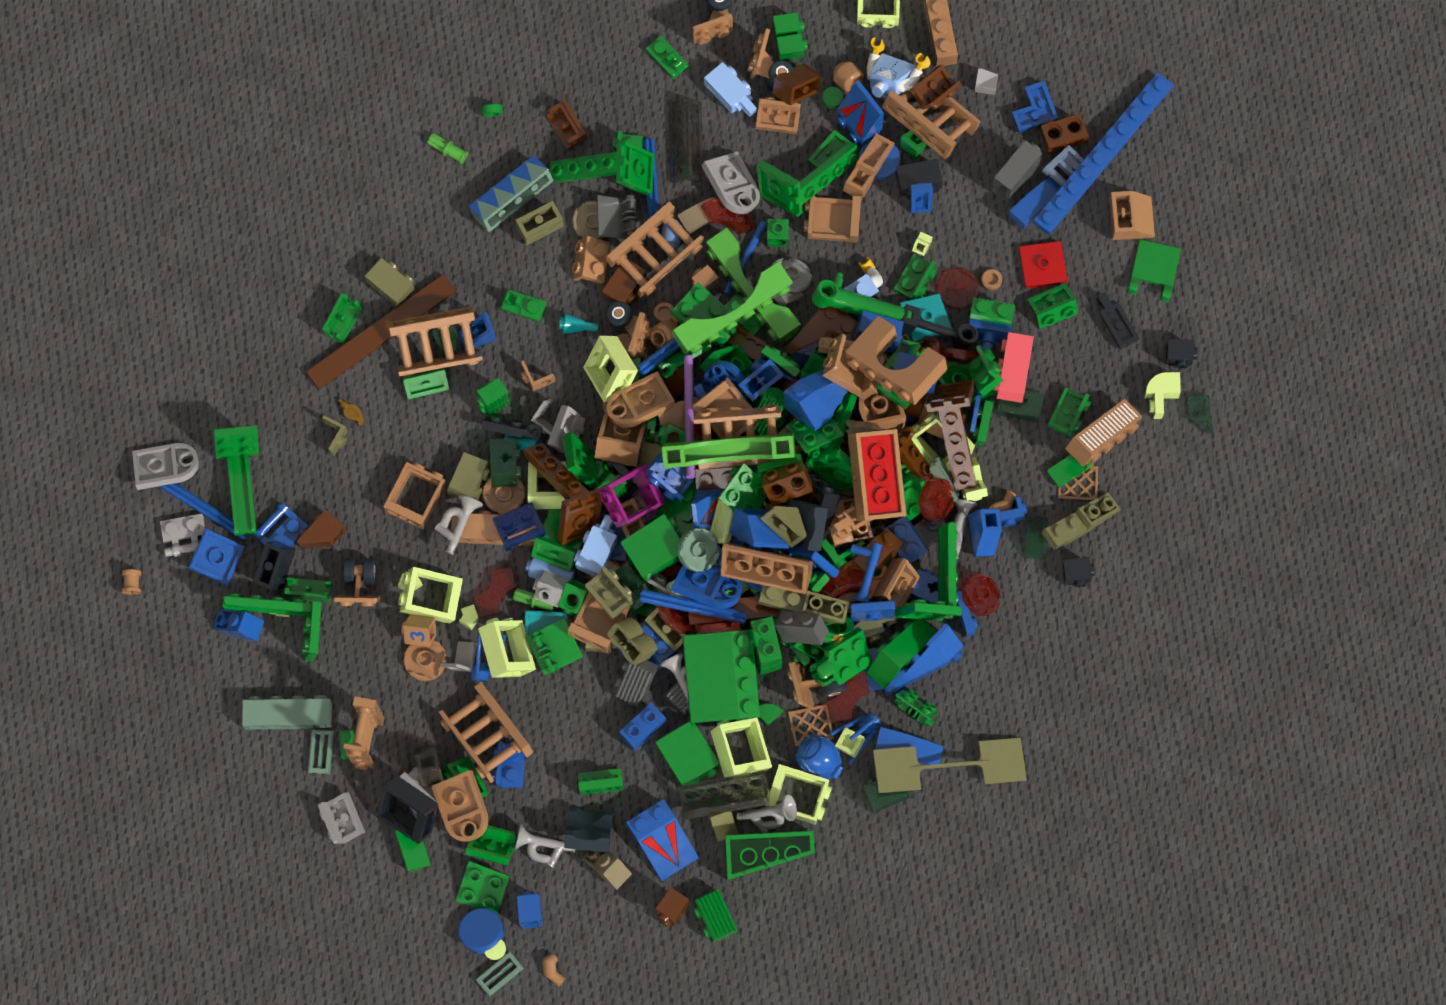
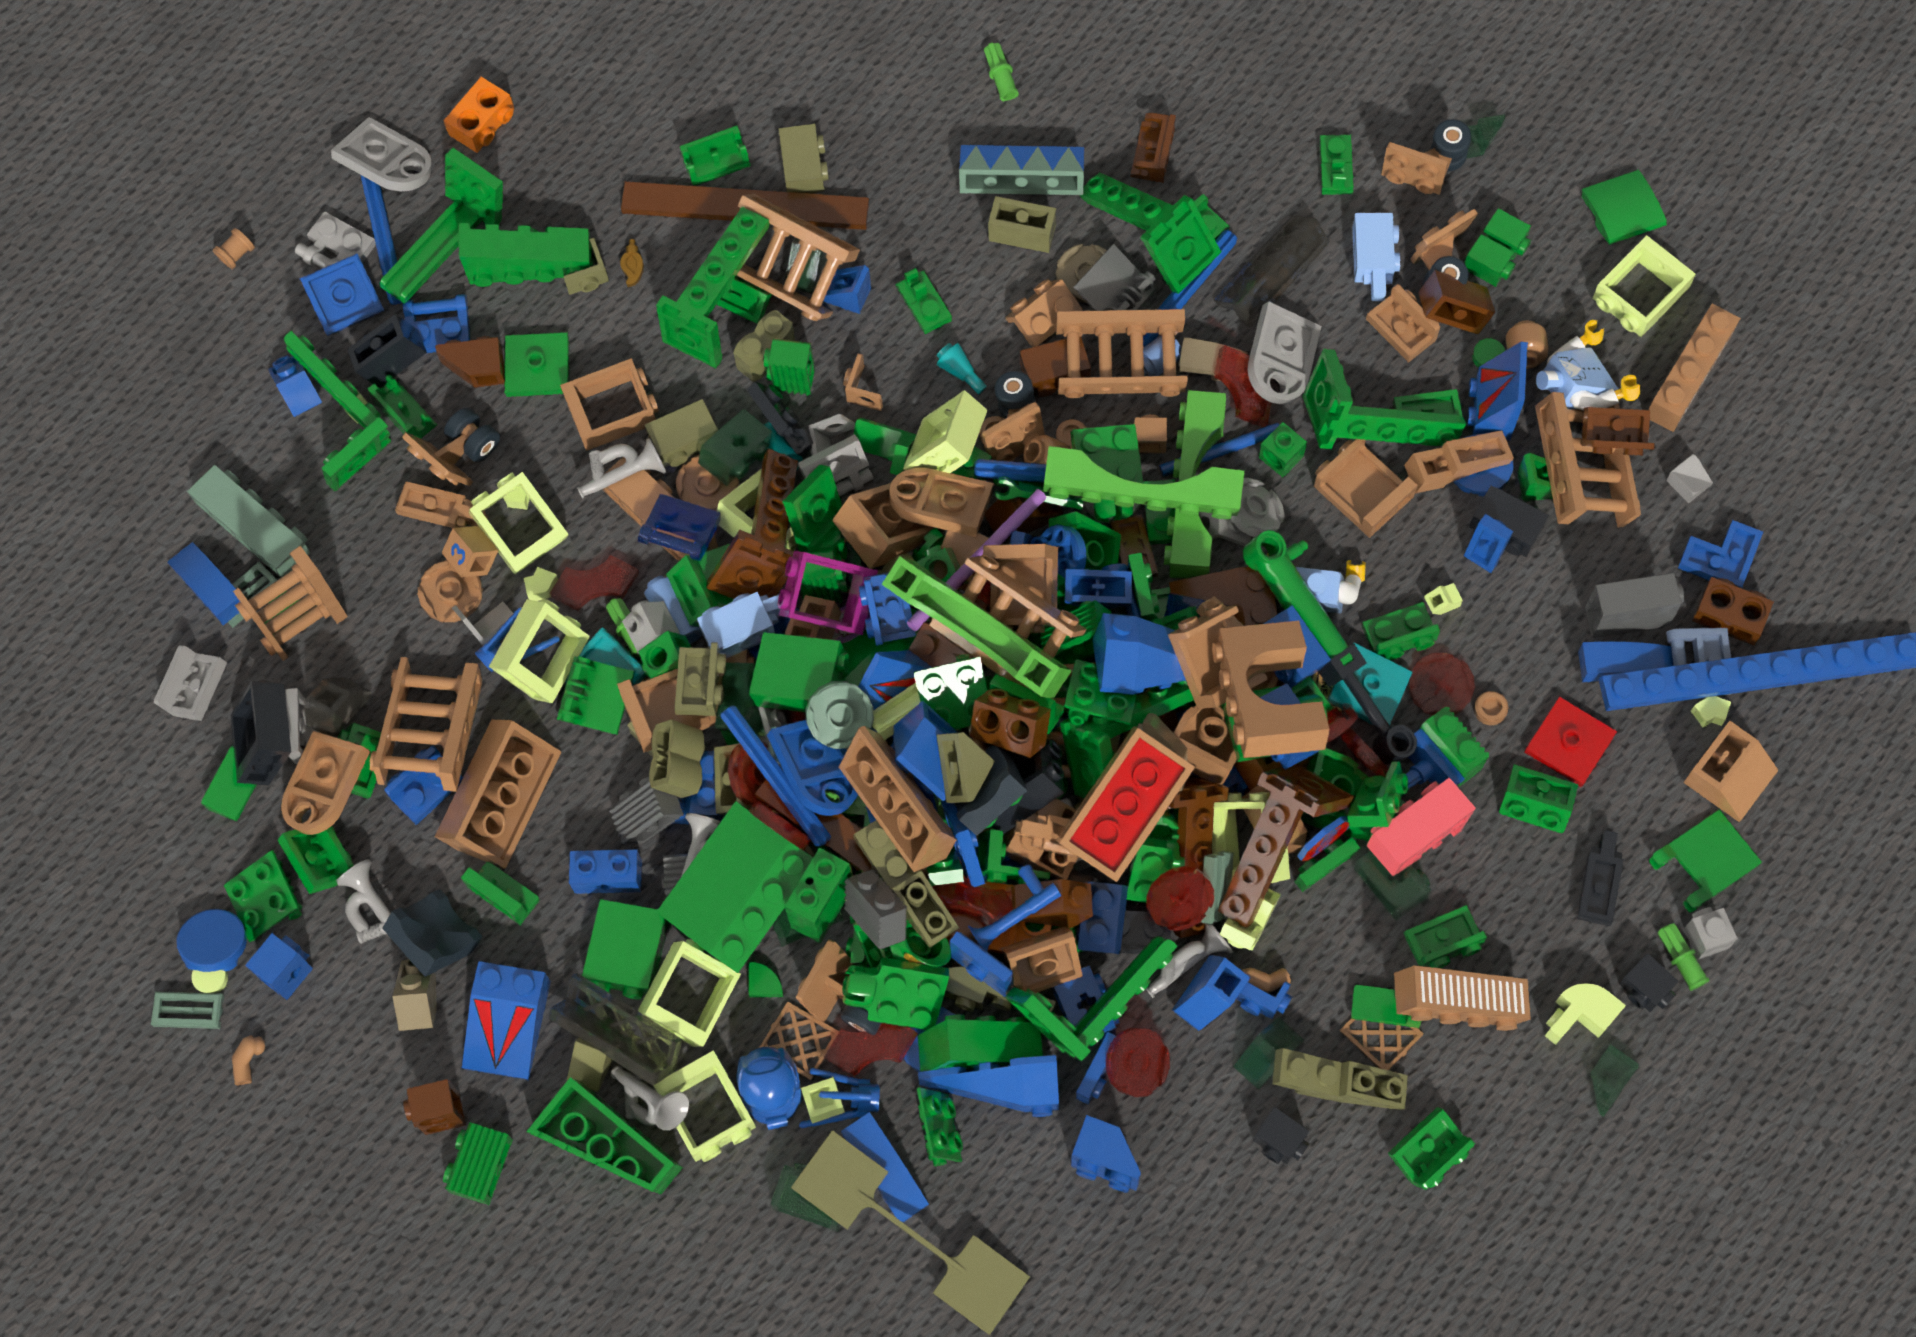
camera: 45 degrees right, 5 degrees down
(189, 401) = (473, 111): none -> orange brick
(295, 454) = (522, 254): none -> green wedge
(296, 762) = (206, 582): none -> blue slope
(354, 506) = (536, 364): none -> green plate
(376, 623) = (435, 506): none -> medium nougat hinge
(423, 418) = (686, 322): none -> green bracket
(466, 393) = (751, 348): none -> olive brick
(492, 110) = (1086, 68): green tile -> none
(551, 736) = (498, 793): none -> medium nougat slope
(576, 395) = (885, 442): none -> green bracket
(1006, 649) = (1105, 1154): none -> blue slope
(1096, 192) = (1711, 711): none -> yellowish green piece
(1150, 517) = (1431, 1150): none -> green bracket
(1183, 326) = (1682, 956): none -> bright green axle
(1187, 303) = (1710, 932): none -> light grey brick

